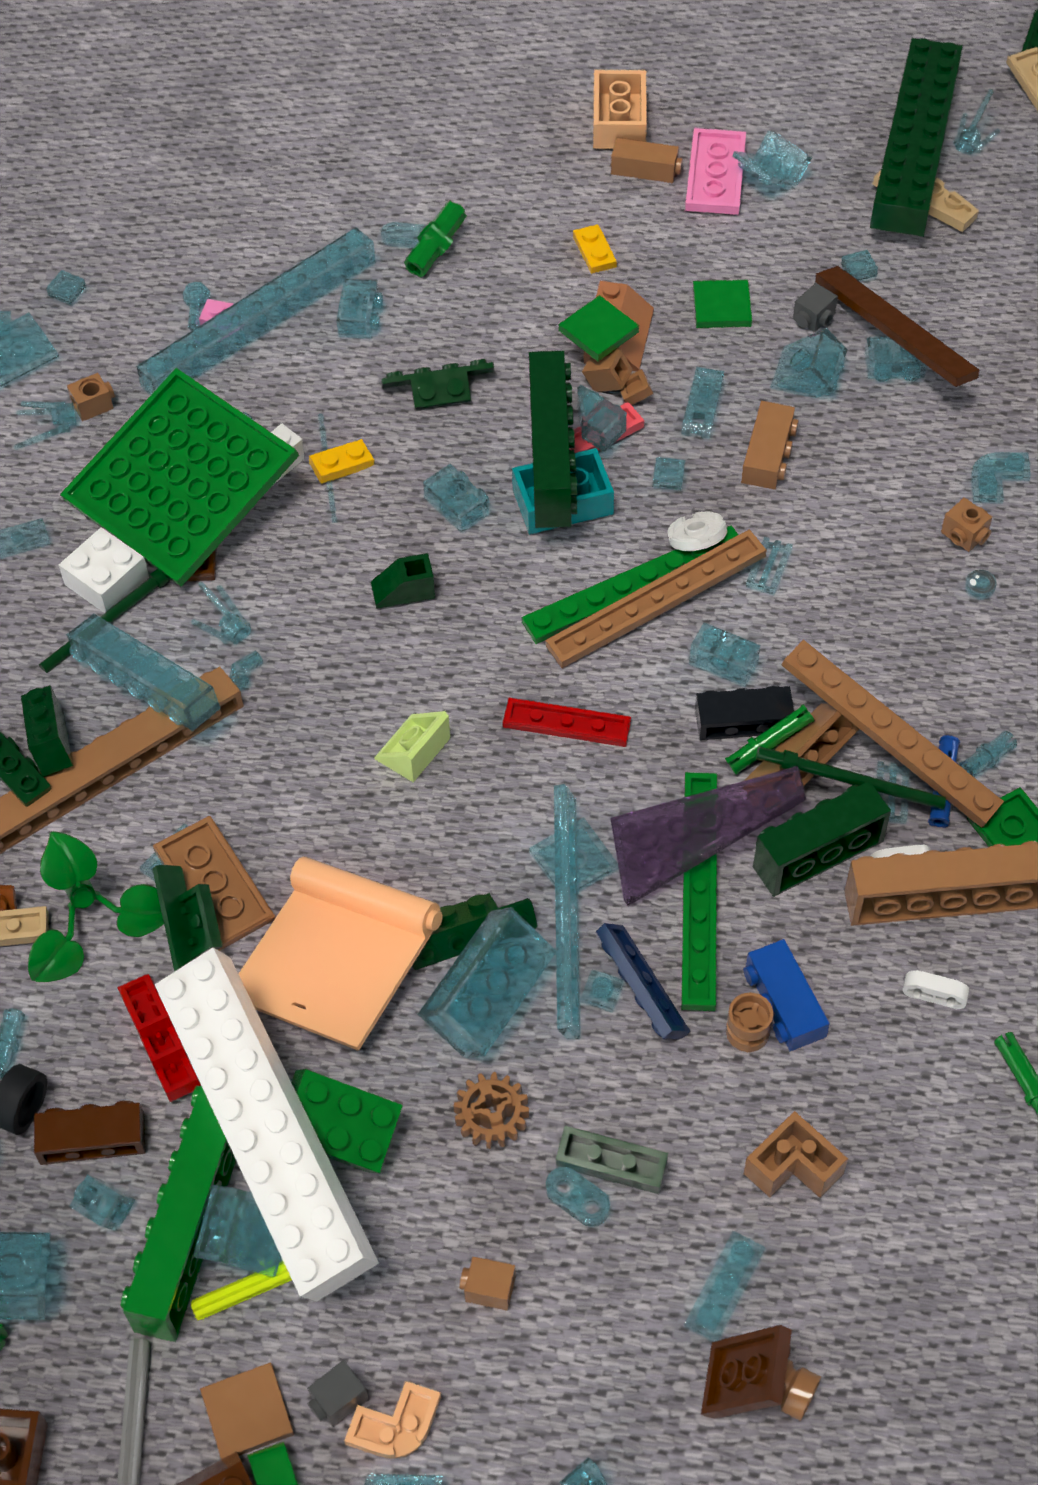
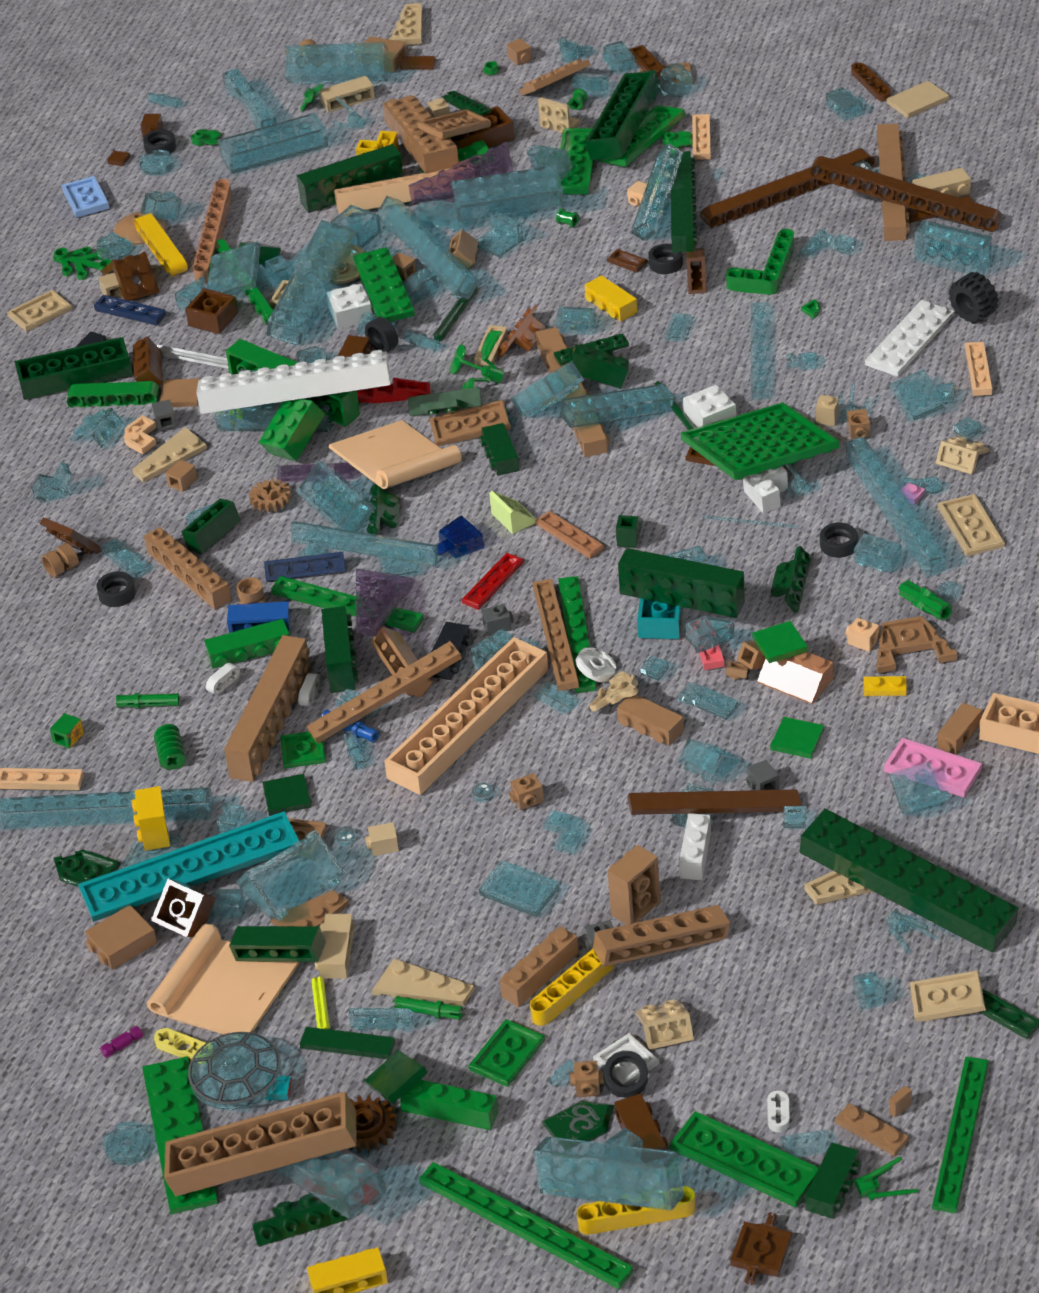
camera: 115 degrees right, 15 degrees down
(71, 435) = (827, 410): none -> tan brick
(125, 272) = (960, 454): none -> tan bracket
(145, 759) = (547, 390): none -> clear light blue brick
(233, 625) = (641, 455): clear light blue plant -> none
(241, 669) = (607, 457): clear light blue arm -> none
(260, 243) = (971, 525): none -> tan tile
(271, 812) = (499, 449): none -> dark green brick
(341, 461) = (748, 524): yellow plate -> none
(344, 372) = (842, 549): none -> black tyre
(403, 1075) = (298, 473): none -> clear purple plate
(423, 1340) = (179, 447): none -> tan wing
(430, 662) = (570, 534): none -> nougat tile
(500, 790) = (459, 538): none -> clear blue torso
(505, 250) = (910, 636): none -> medium nougat wing
(519, 289) = (862, 634): none -> light nougat brick
(656, 677) = (496, 618): none -> dark grey brick
(719, 1158) = (187, 568): none -> medium nougat brick
(738, 489) = (621, 687): none -> tan tile
(770, 738) = (419, 646): green pin -> none
(790, 759) = (386, 637): dark green bar -> none
(797, 1279) = (118, 598): none -> black tyre
(798, 1151) = (166, 593): medium nougat brick -> none
(851, 986) = (245, 643): none -> green brick
(873, 635) = (466, 716): none -> light nougat brick
(971, 330) = (695, 846): none -> white brick

